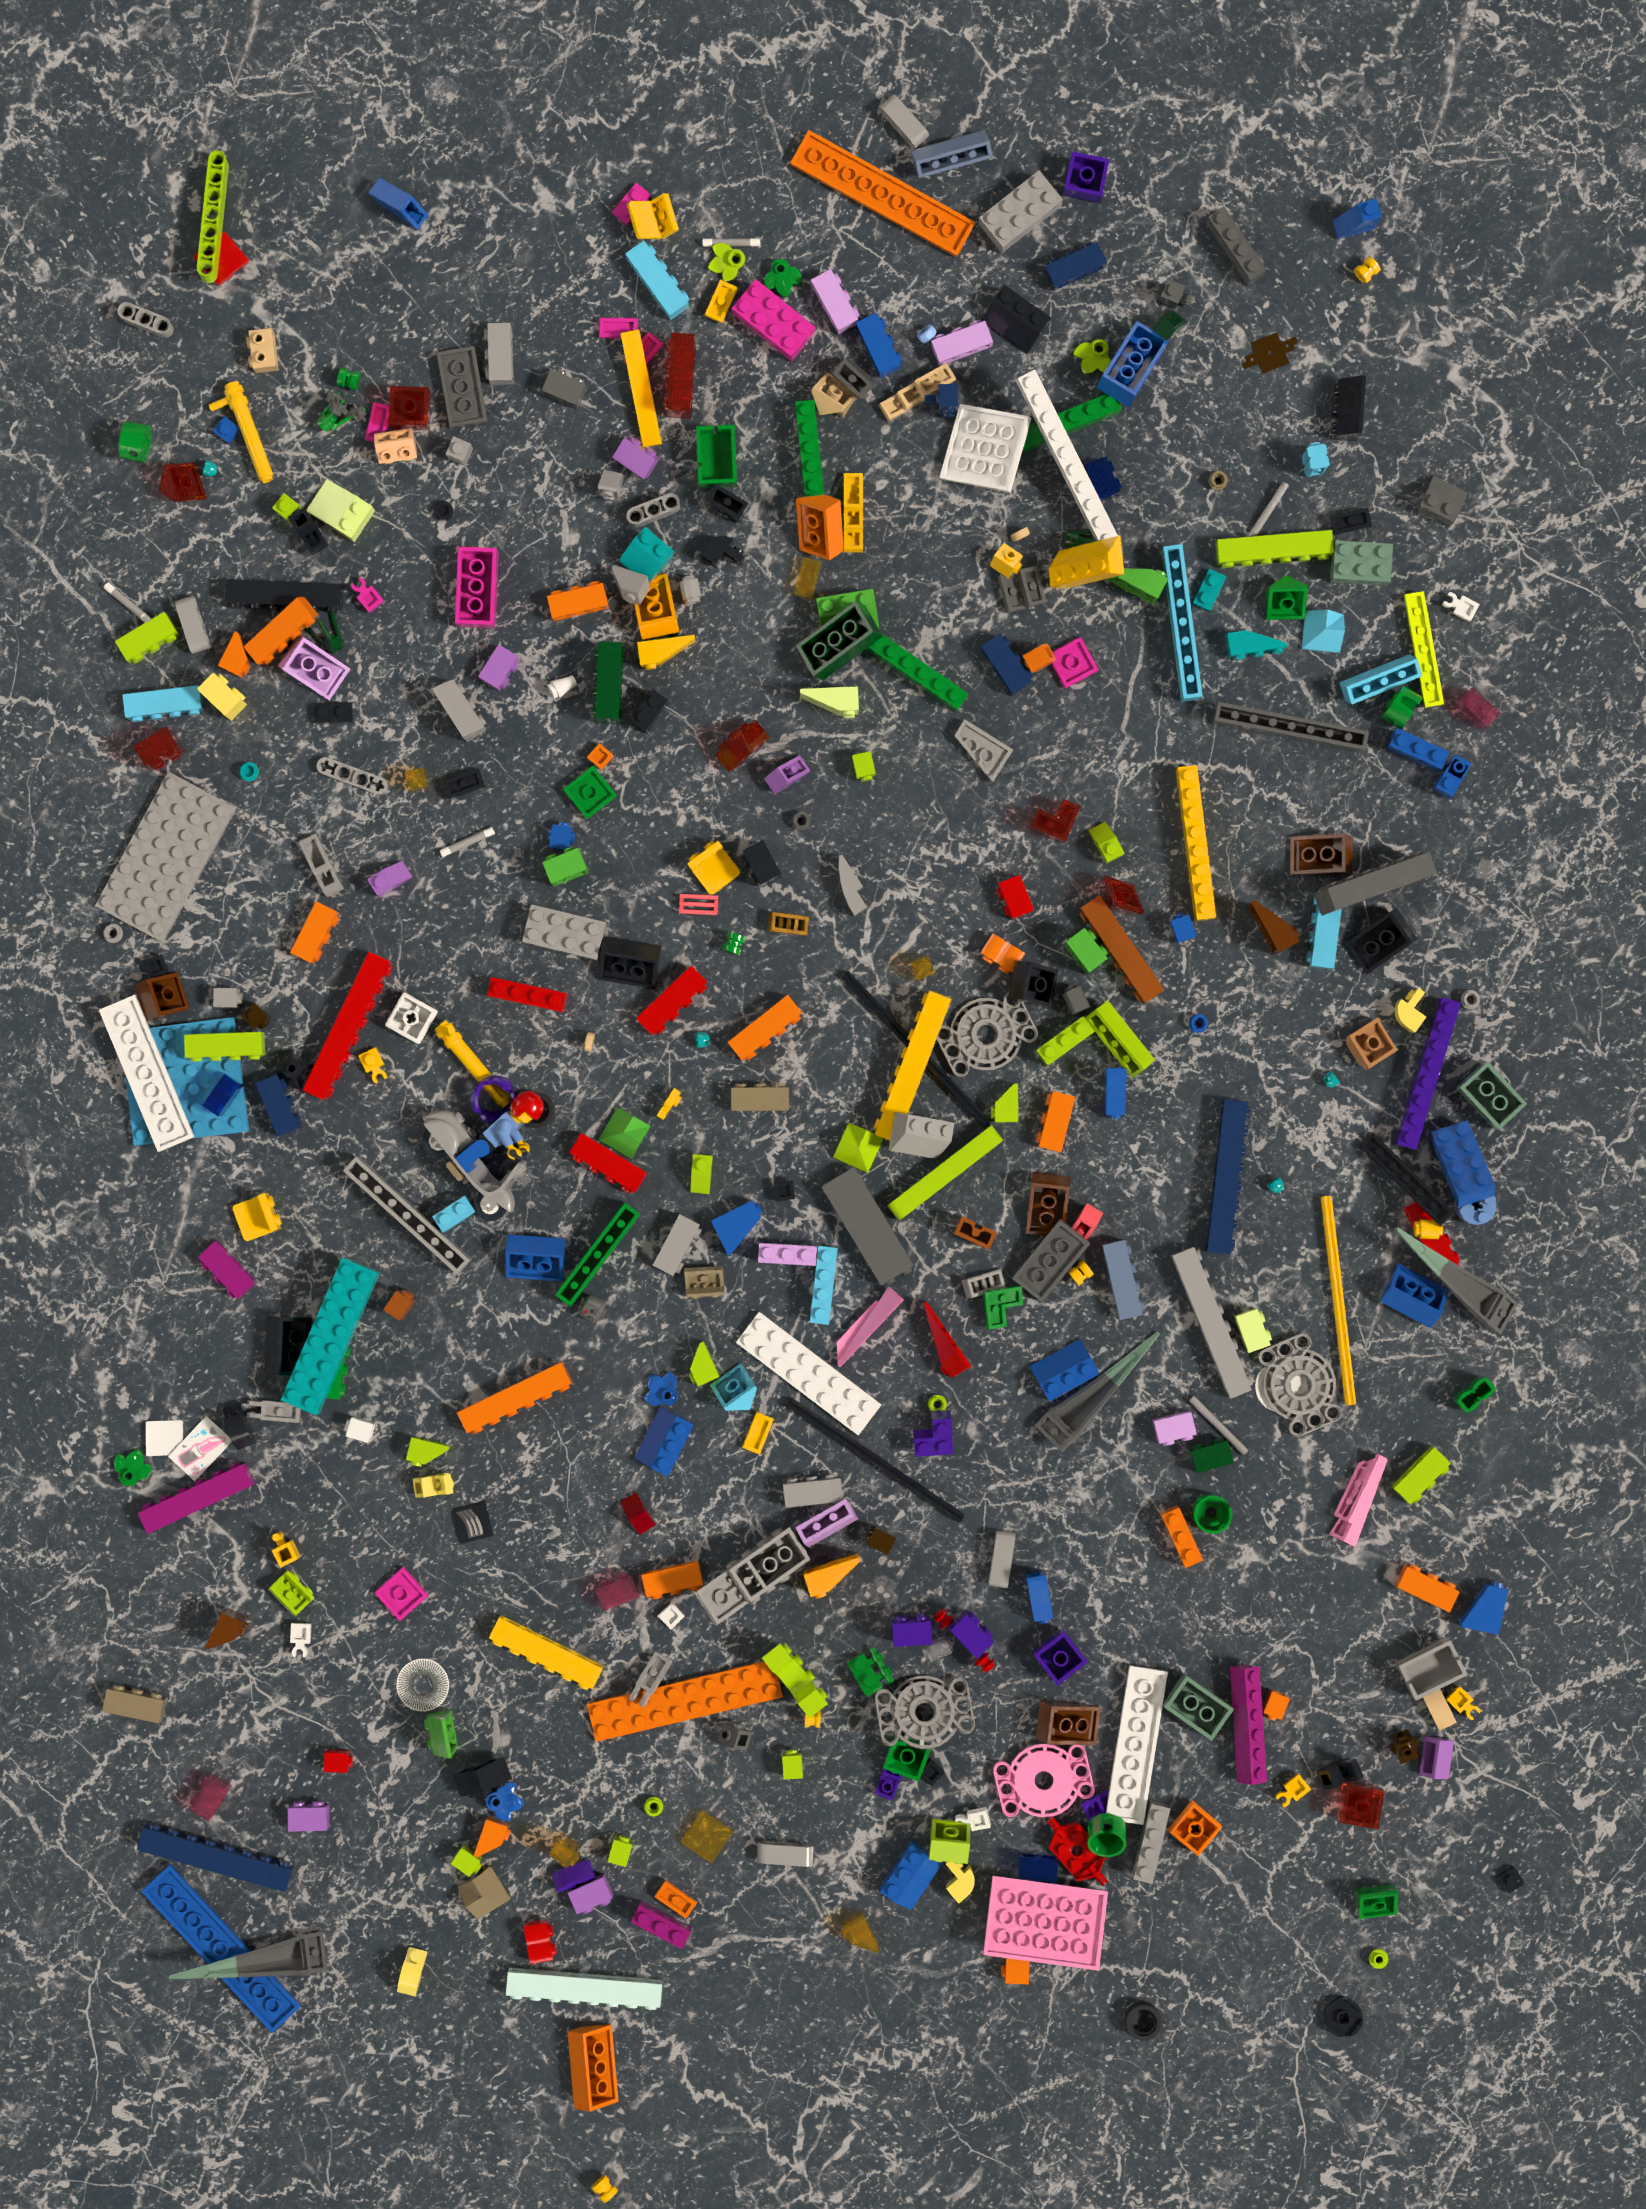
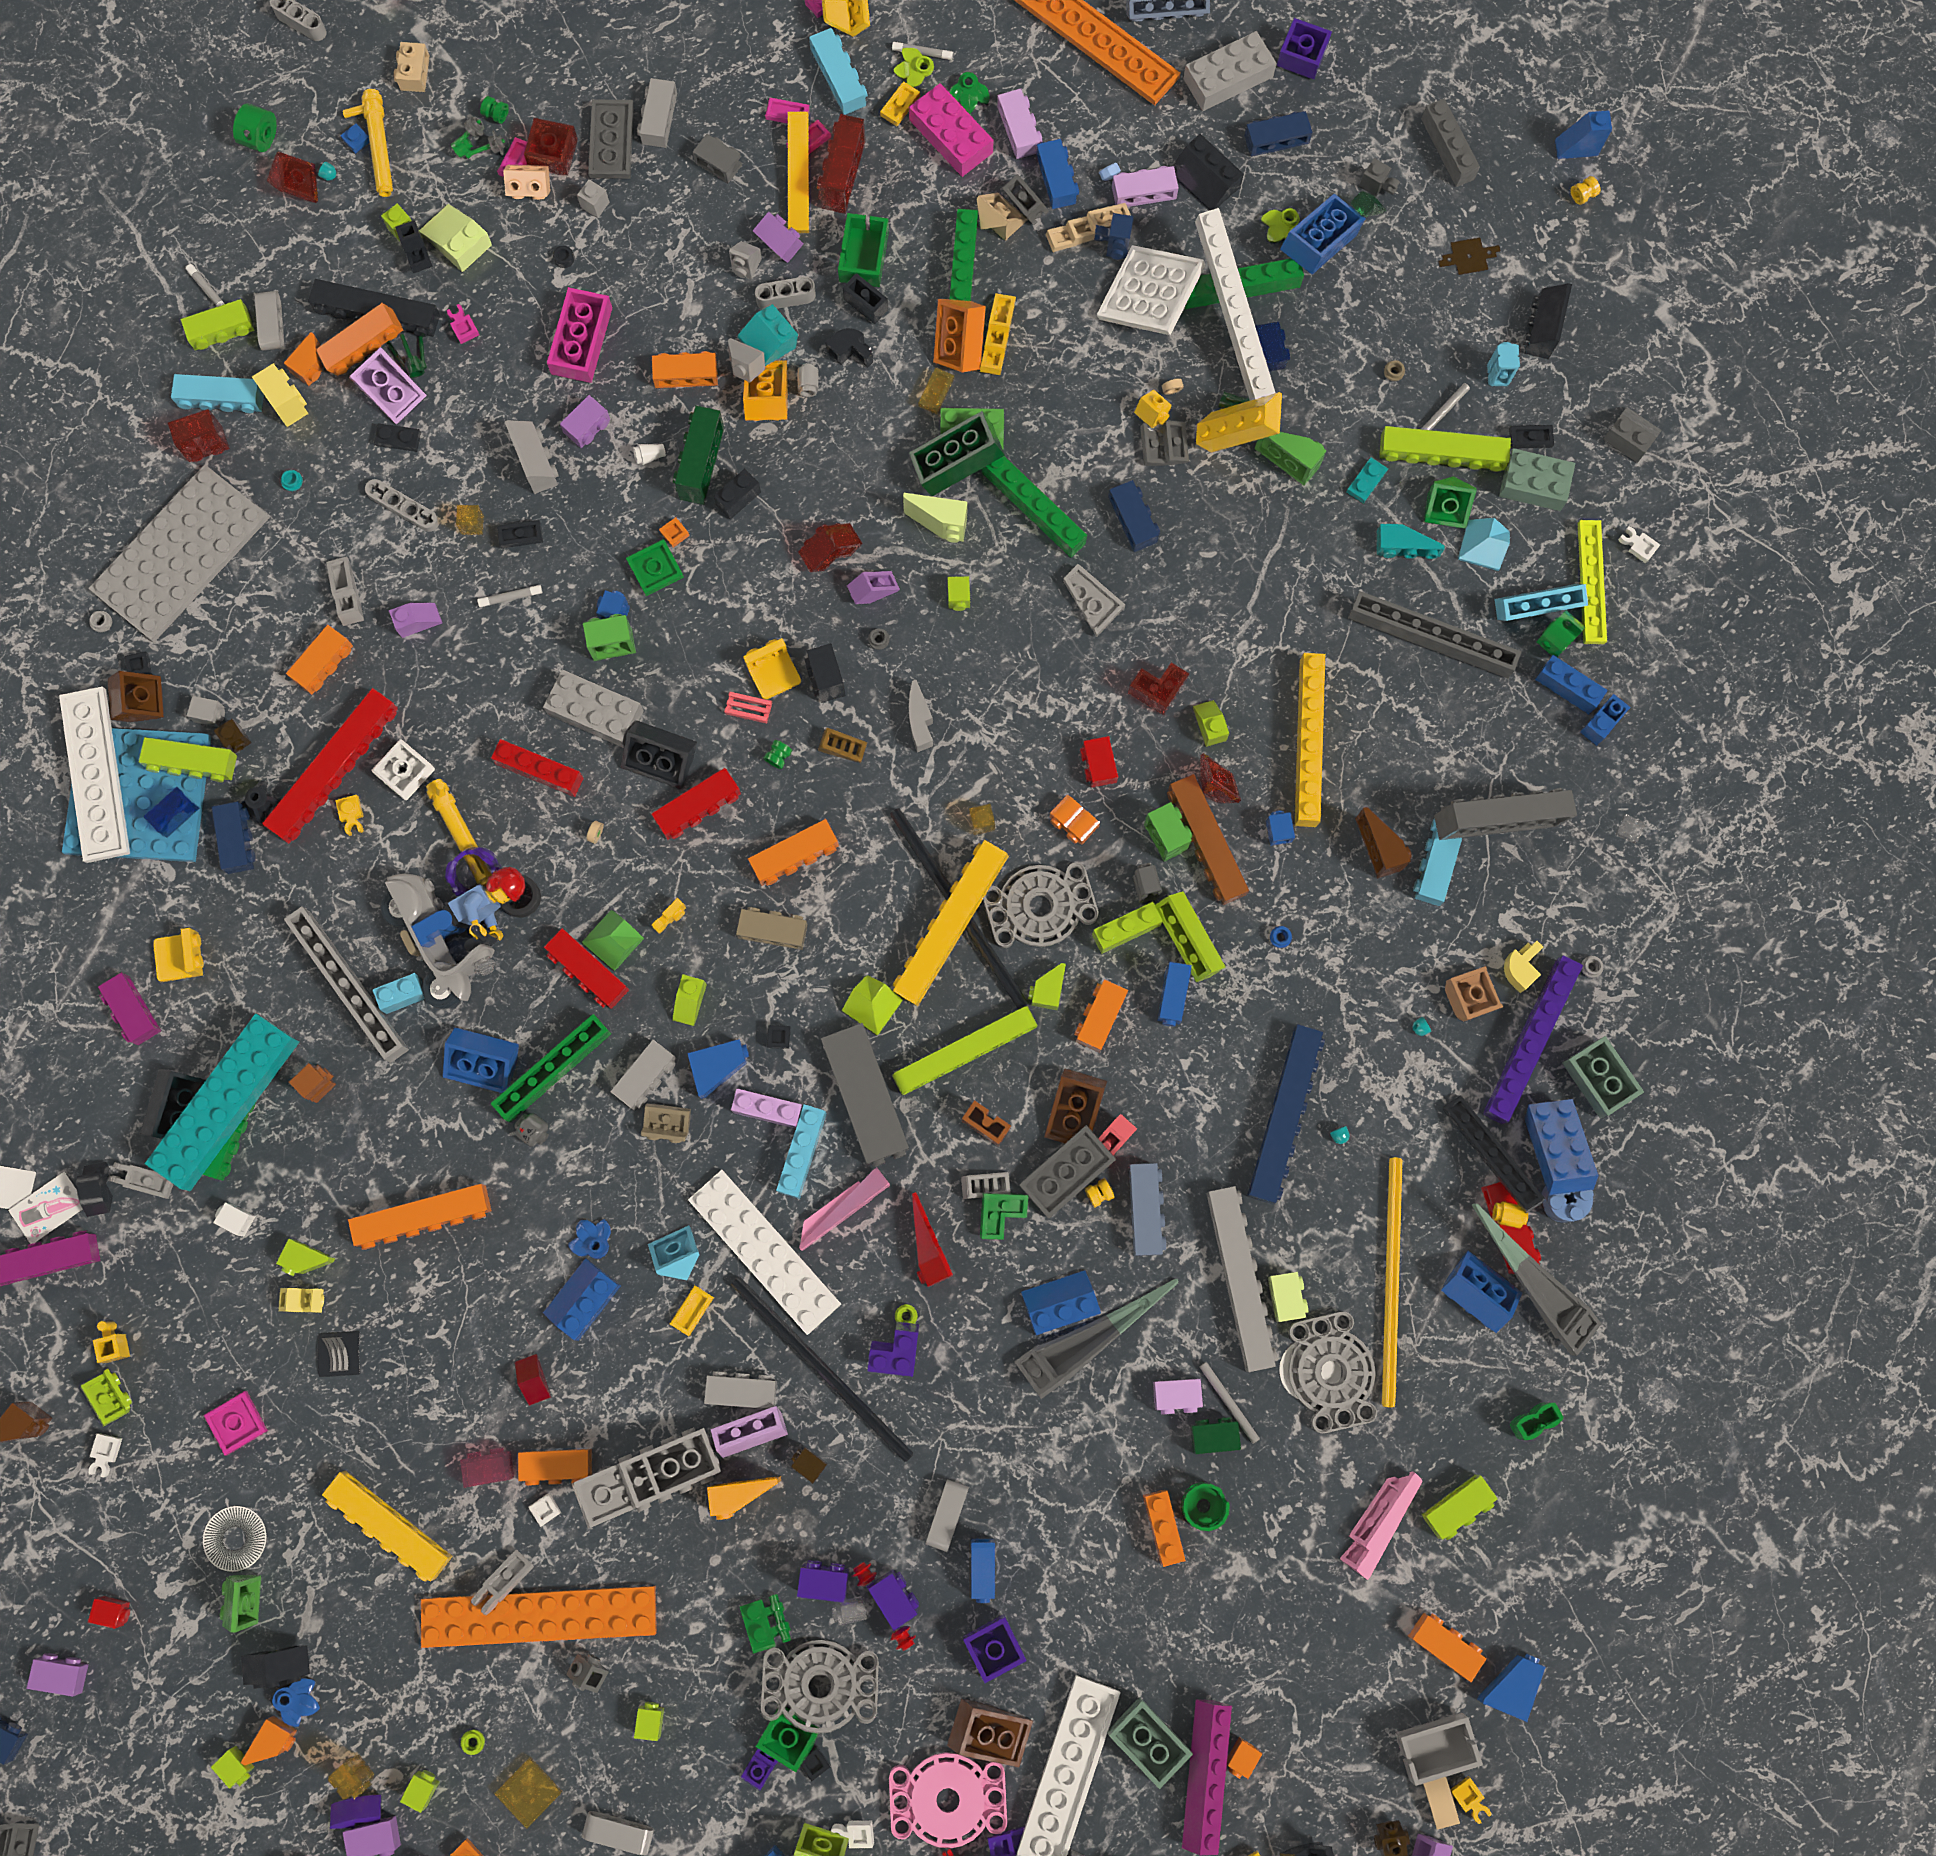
camera: 10 degrees right, 10 degrees down
(483, 1893) = (243, 1813): dark tan slope -> none
(656, 652) = (763, 435): yellow slope -> none
(702, 1039) = (721, 853): teal hinge -> none
(703, 1367) = (643, 1220): lime slope -> none
(796, 1678) = (674, 1613): lime brick -> none
(814, 1720) = (685, 1667): yellow wheel -> none
(920, 1135) = (944, 1000): light grey slope -> none
(1033, 983) = (1102, 856): black brick -> none
(1039, 658) = (1170, 514): orange brick -> none
(1073, 662) = (1206, 528): dark pink tile -> none
(1181, 623) = (1332, 506): medium azure brick -> none
(1321, 855) = (1447, 777): reddish brown slope -> none
(1381, 941) = (1501, 883): black slope -> none
(1477, 708) = (1643, 652): clear pink brick -> none

